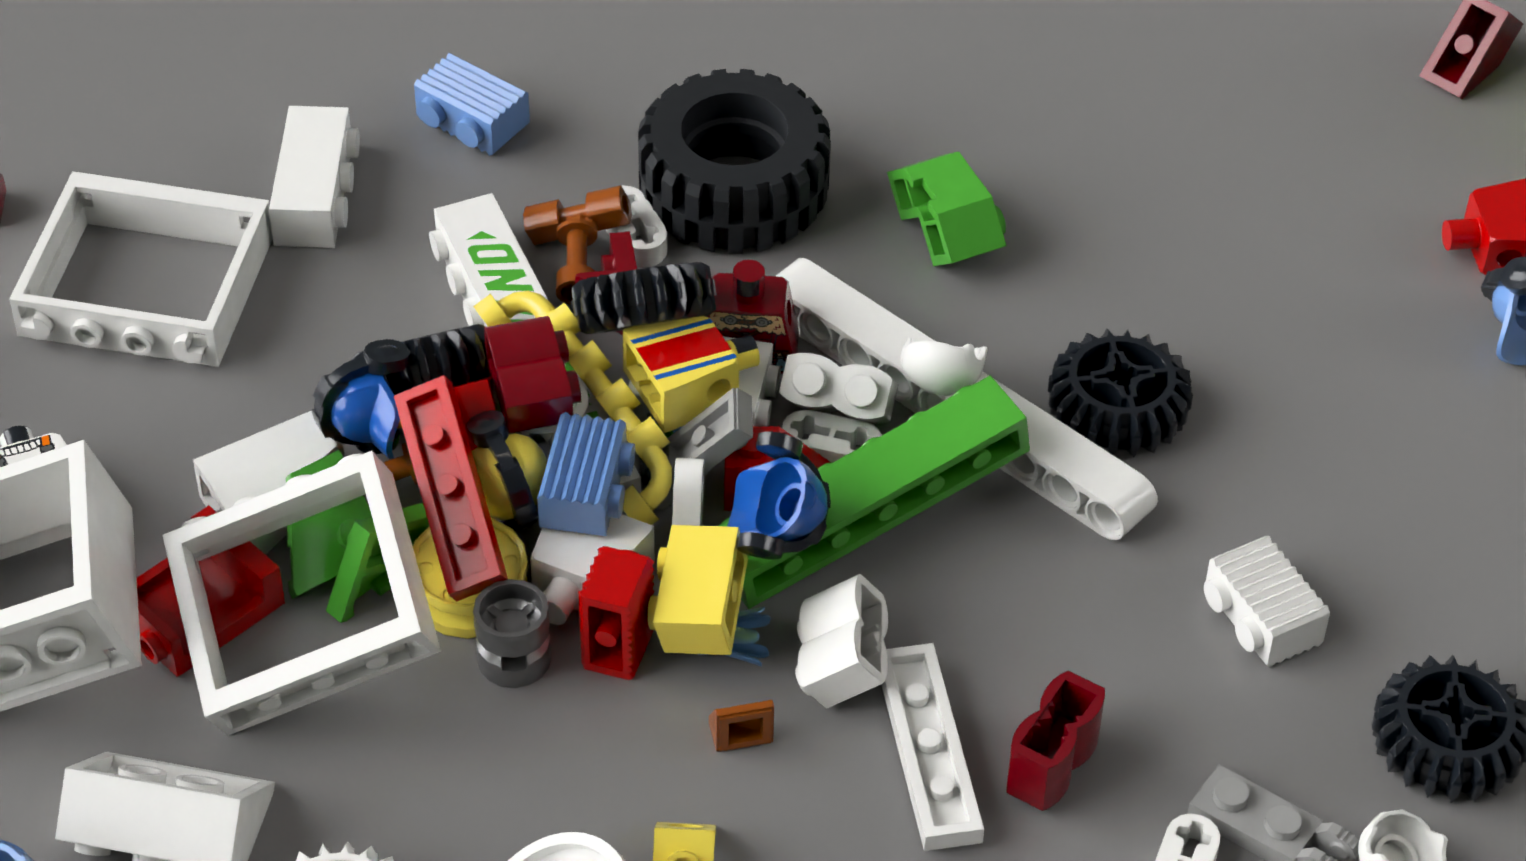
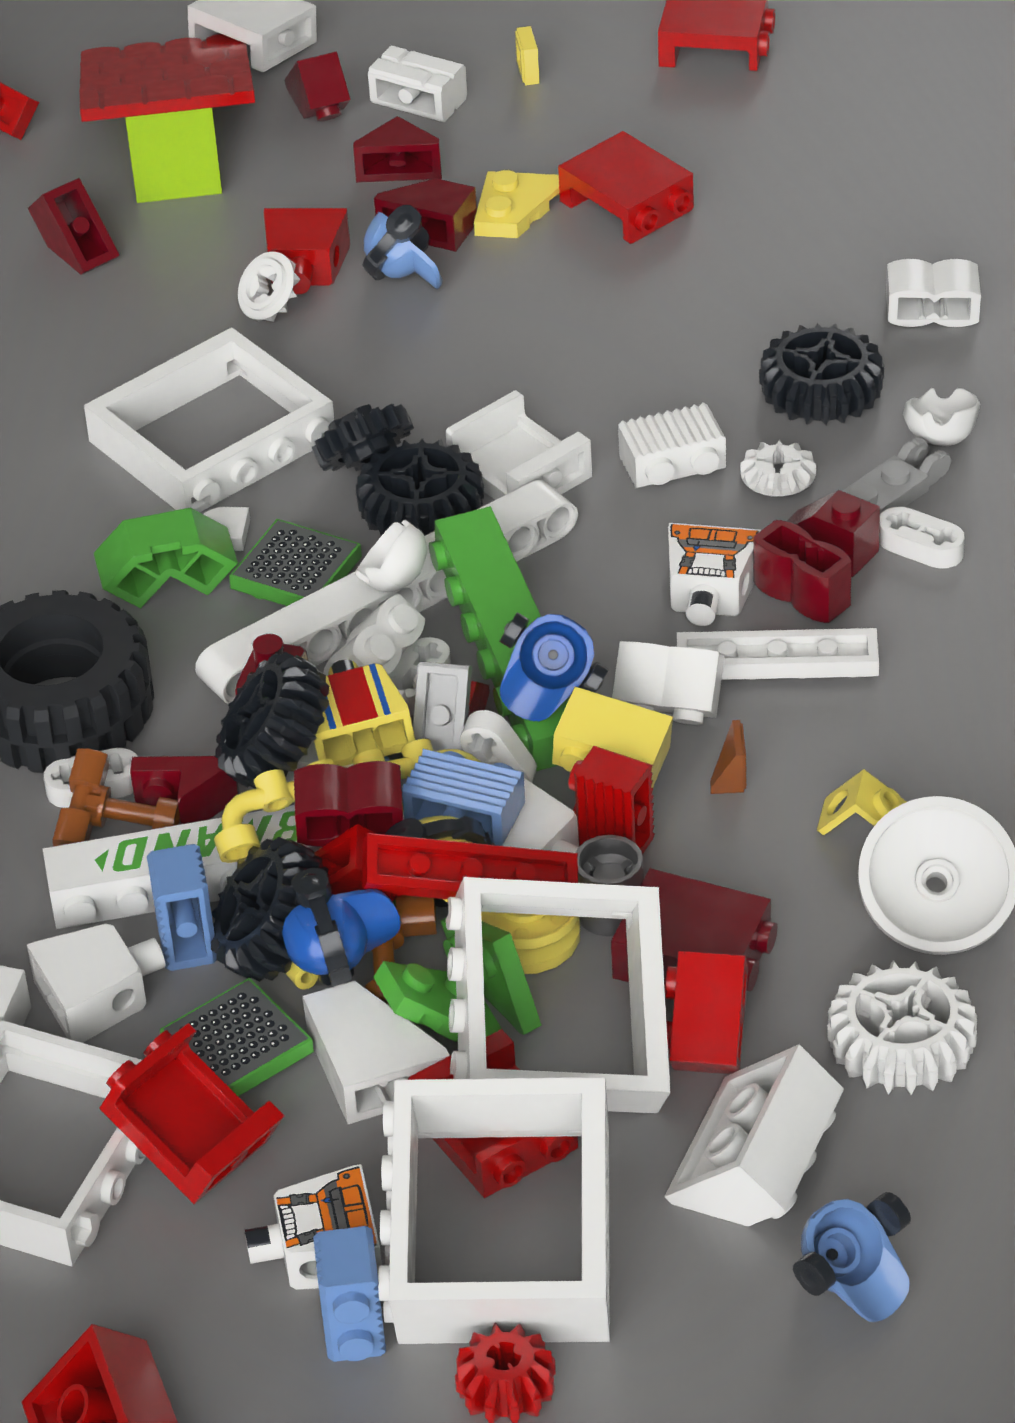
camera: 75 degrees left, 5 degrees down
(155, 355) = (185, 1115): none -> red panel
(270, 381) = (244, 1036): none -> tile
(317, 734) = (706, 1011): none -> red brick
(346, 270) = (92, 978): none -> white torso
(425, 293) = (182, 906): none -> medium blue brick
(453, 722) = (703, 920): none -> dark red brick
(976, 310) = (293, 563): none -> tile
(1030, 255) = (236, 520): none -> white tile
(1040, 648) = (710, 570): none -> white torso
(1151, 775) = (845, 523): none -> dark red slope
(1168, 318) = (361, 435): none -> black gear
(1213, 157) = (122, 411): none -> white window
(1217, 467) = (518, 450): none -> white panel
(1257, 727) = (794, 477): none -> white gear
(1424, 210) = (254, 288): none -> white gear

